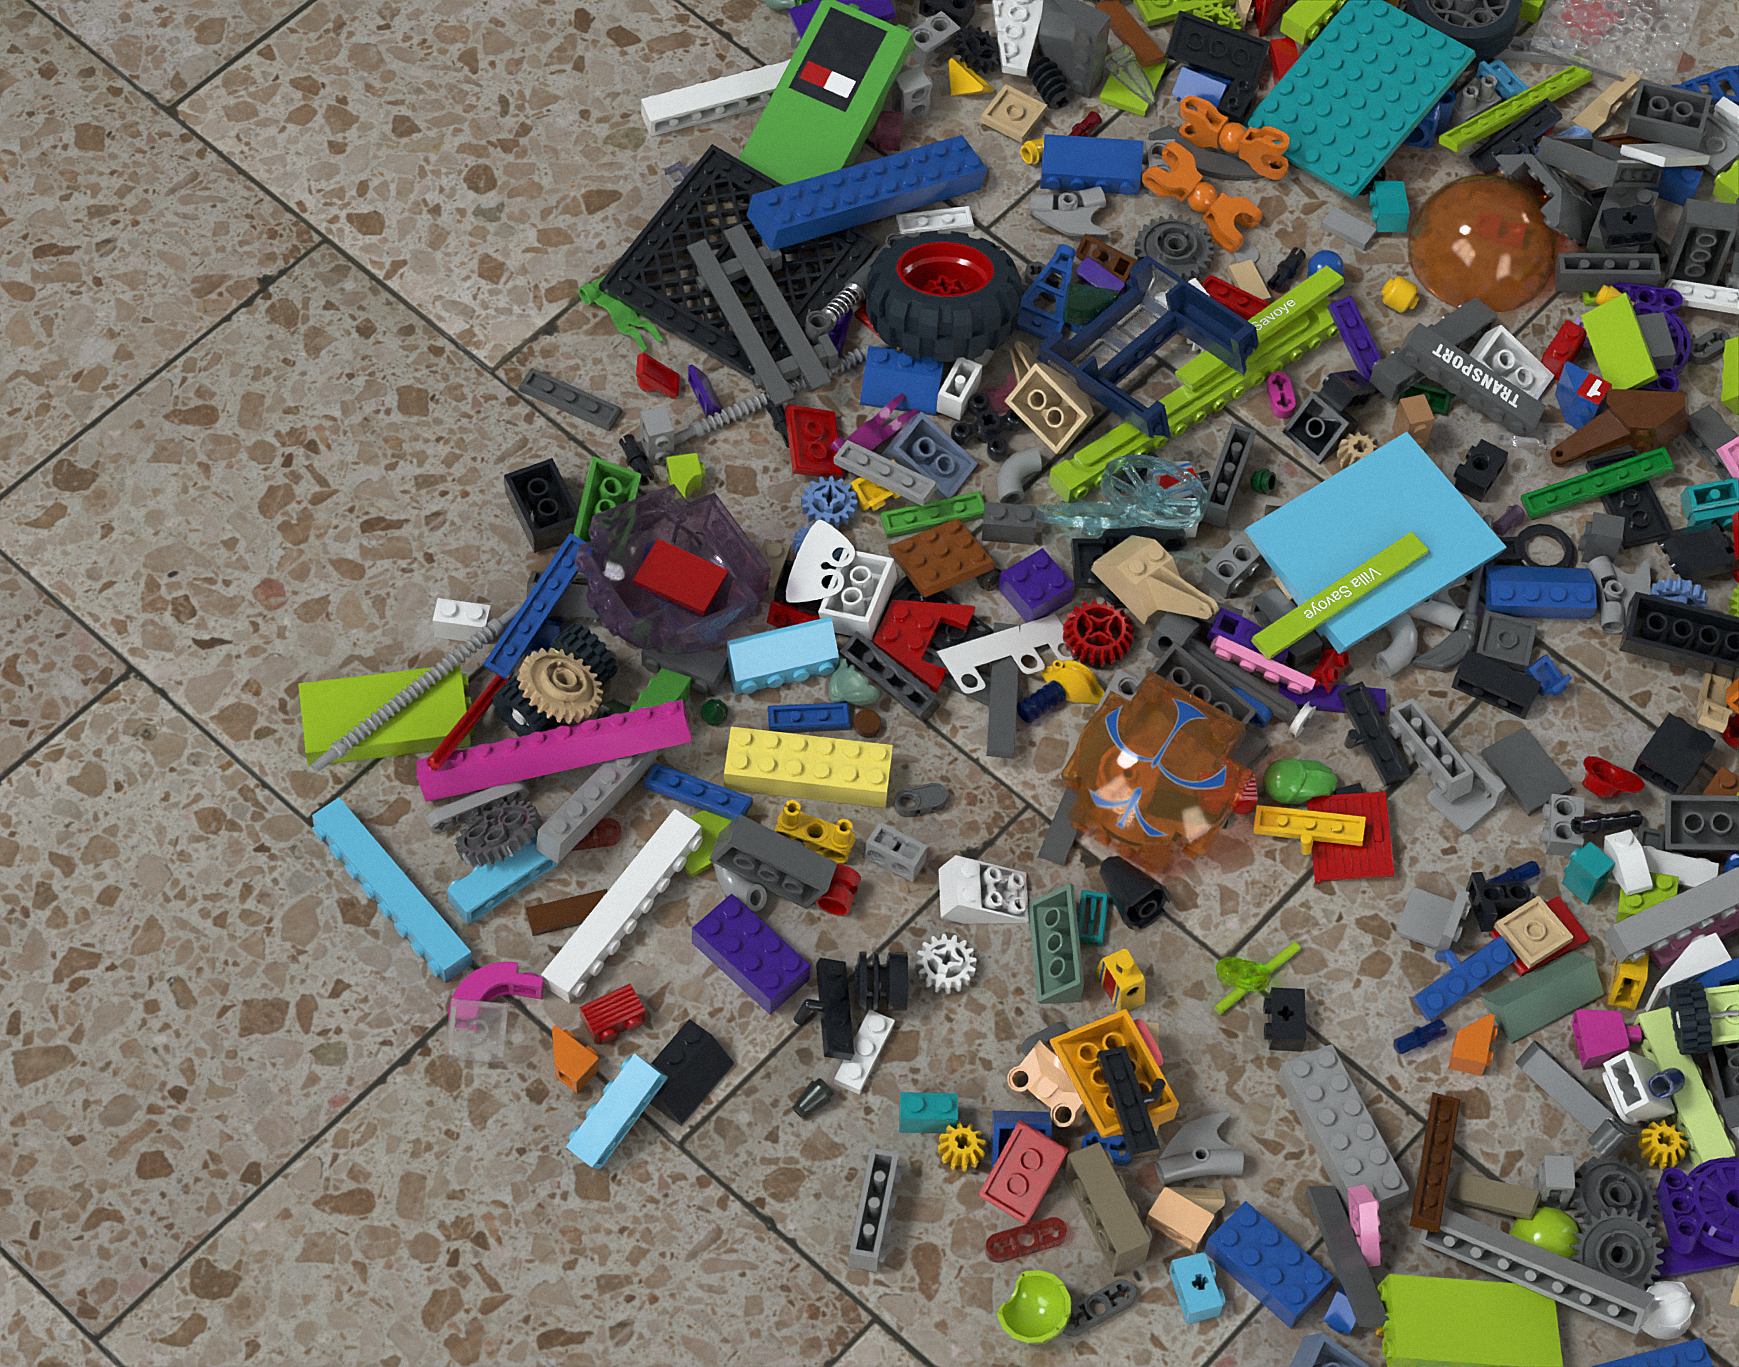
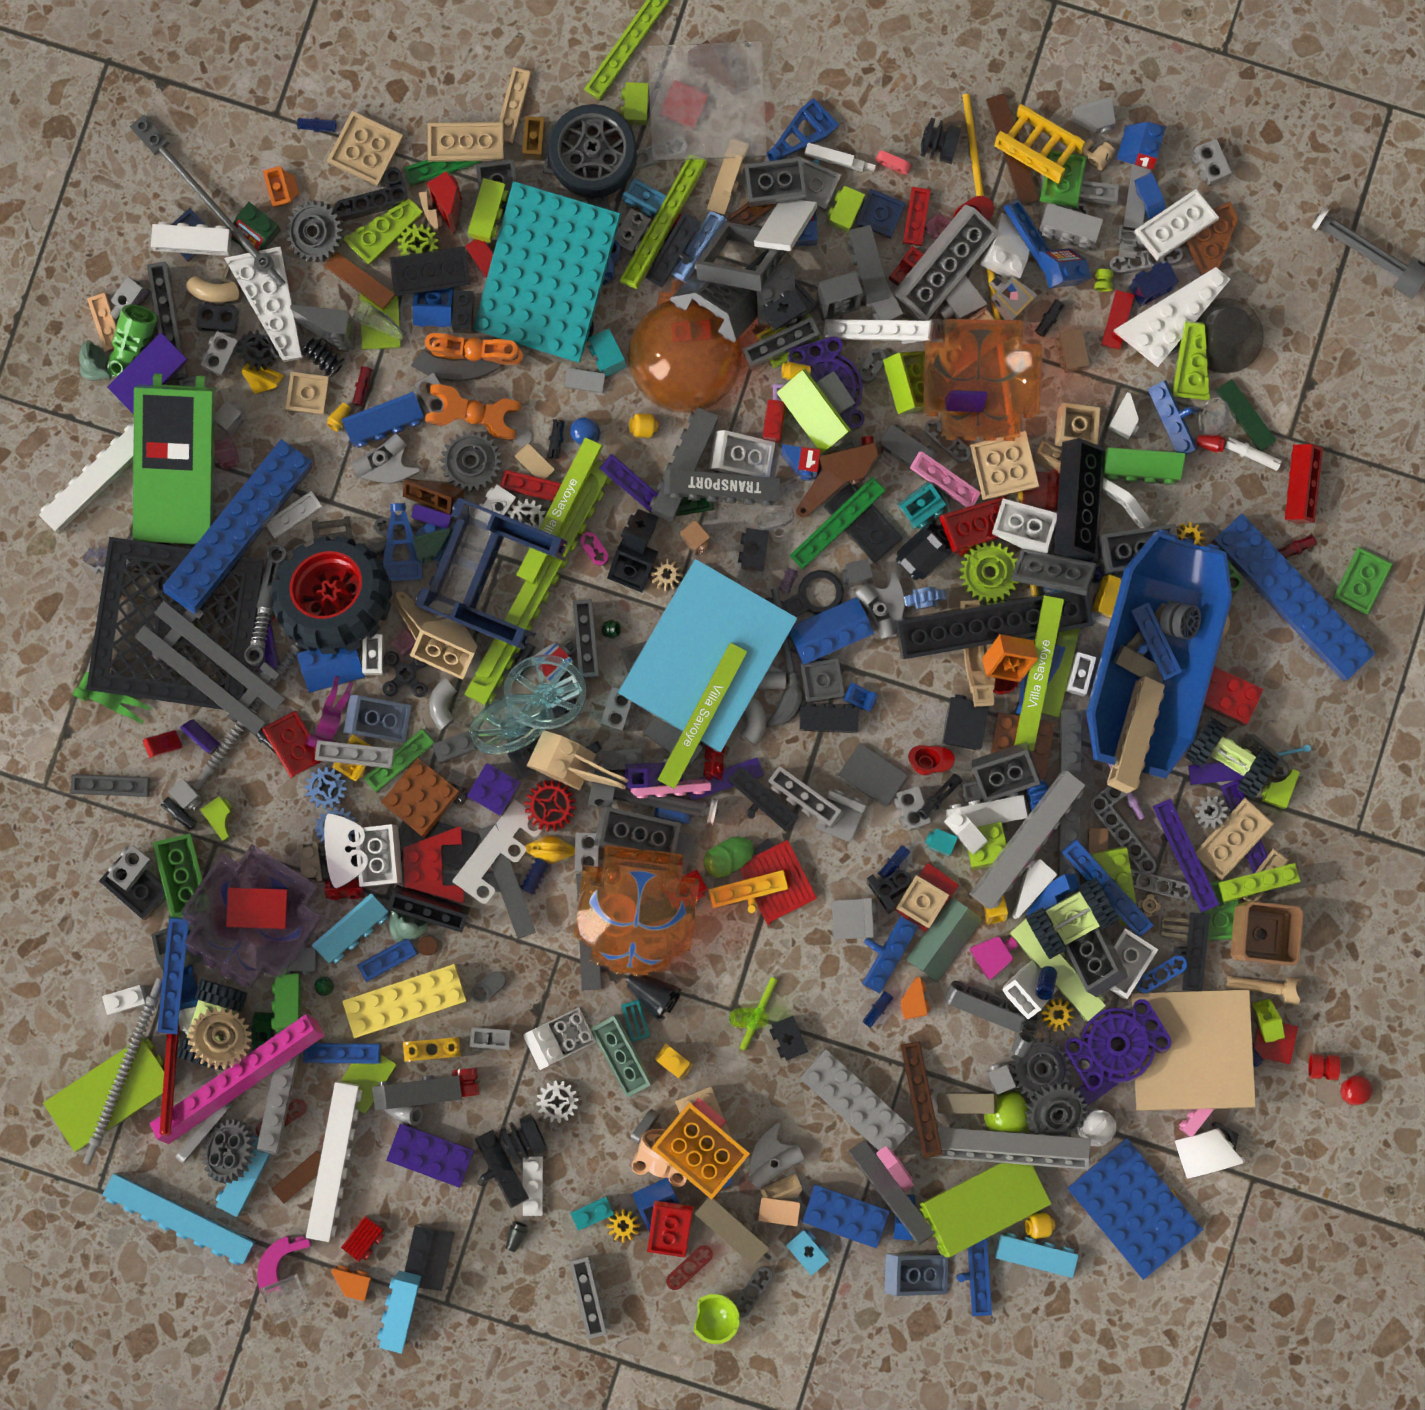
camera: 25 degrees left, 25 degrees up
(552, 476) = (133, 871): none -> light grey brick
(1130, 1102) = (719, 1172): black plate -> none

